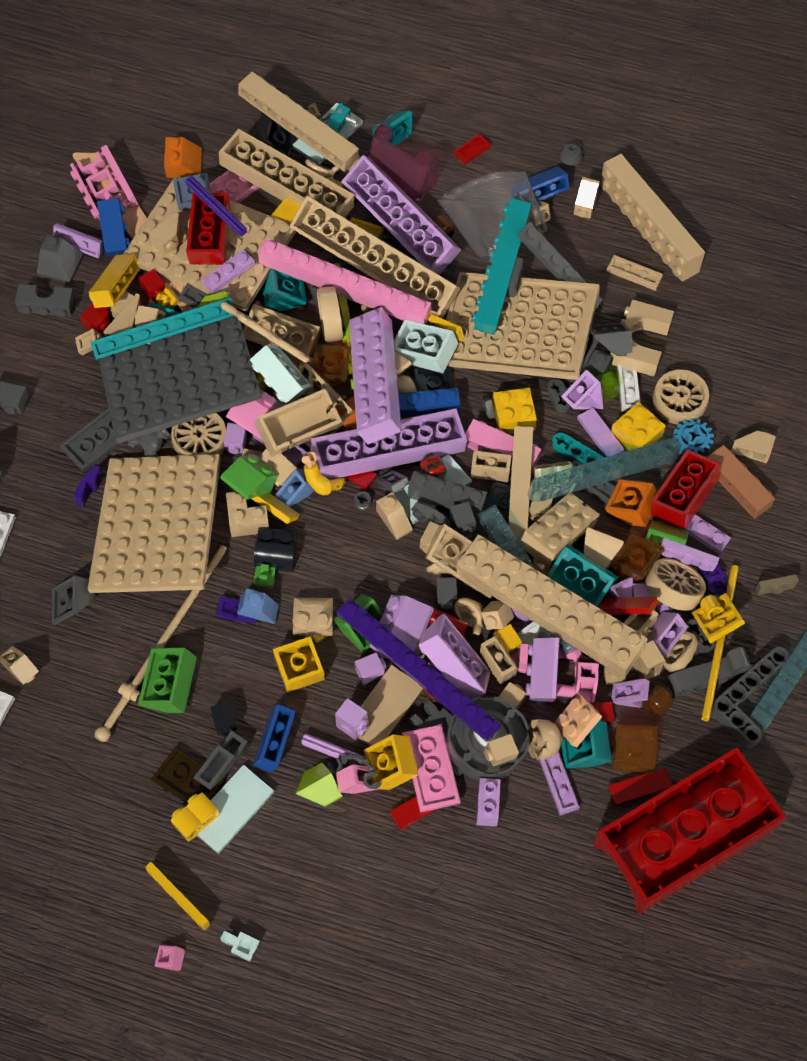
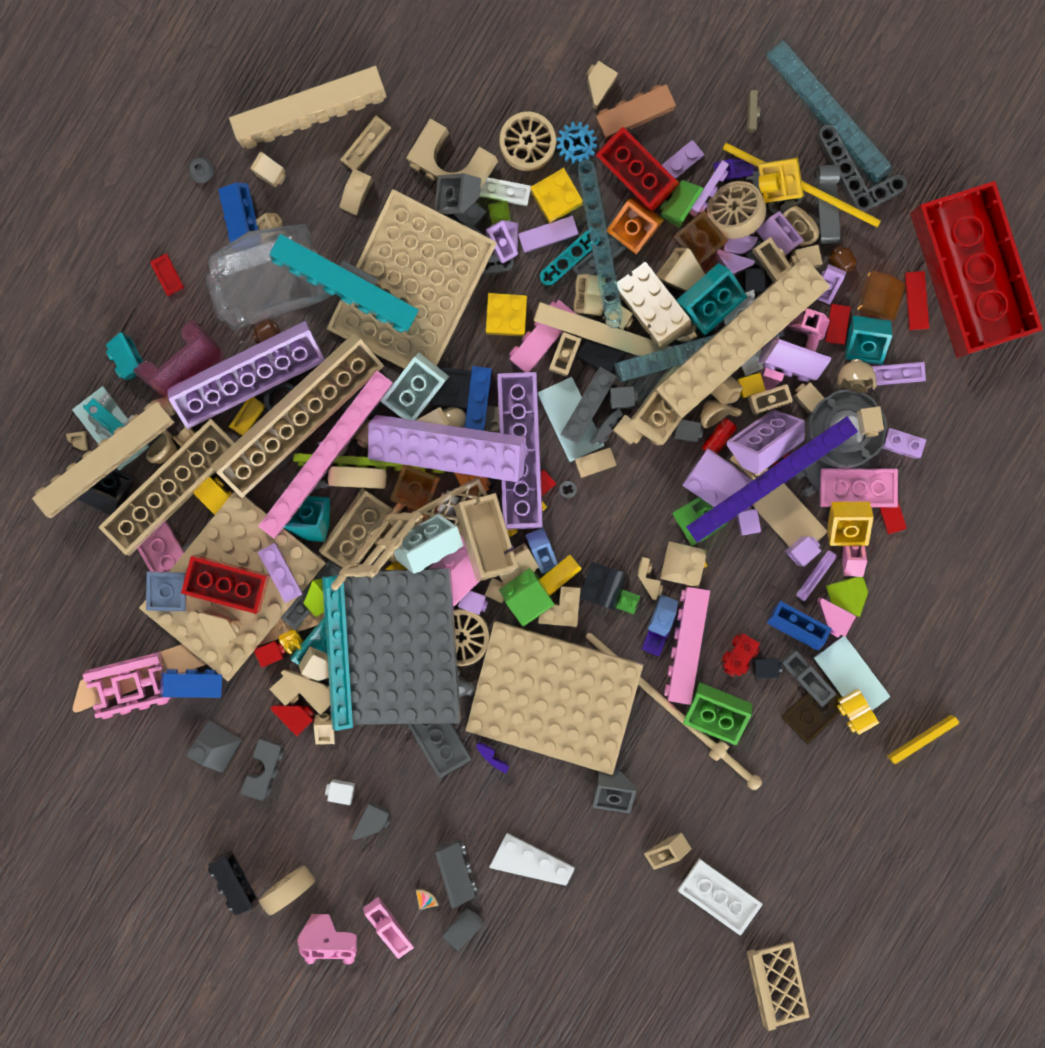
camera: 75 degrees left, 25 degrees up
(33, 366) = (340, 791): none -> white brick
(81, 241) = (194, 724): lavender tile -> none
(114, 280) = (263, 693): yellow brick -> none
(169, 957) = (972, 755): bright pink slope -> none
(182, 158) = (111, 593): orange slope -> none
(216, 206) = (207, 572): dark purple axle -> none
(229, 689) = (740, 654): none -> red brick
(232, 638) = (688, 645): none -> bright pink brick
(243, 945) = (979, 689): light aqua plate -> none
(283, 592) = (652, 586): none -> tan slope
(289, 775) = (835, 617): none -> bright pink slope
(298, 664) = (731, 588): yellow brick -> none
(316, 479) = (550, 530): yellow arm -> none
(359, 759) = (840, 551): dark grey piece -> none
(393, 481) = (559, 455): dark grey plate -> none
(433, 466) = (555, 412): head -> none
(441, 323) = (398, 360): yellow tile -> none
(488, 404) = (493, 339): dark grey tile -> none
(550, 256) = (347, 228): dark grey plate -> none
(577, 720) = (849, 341): light nougat plate -> none
(592, 269) = (355, 192): none -> tan slope
(628, 605) = (756, 263): red tile -> none

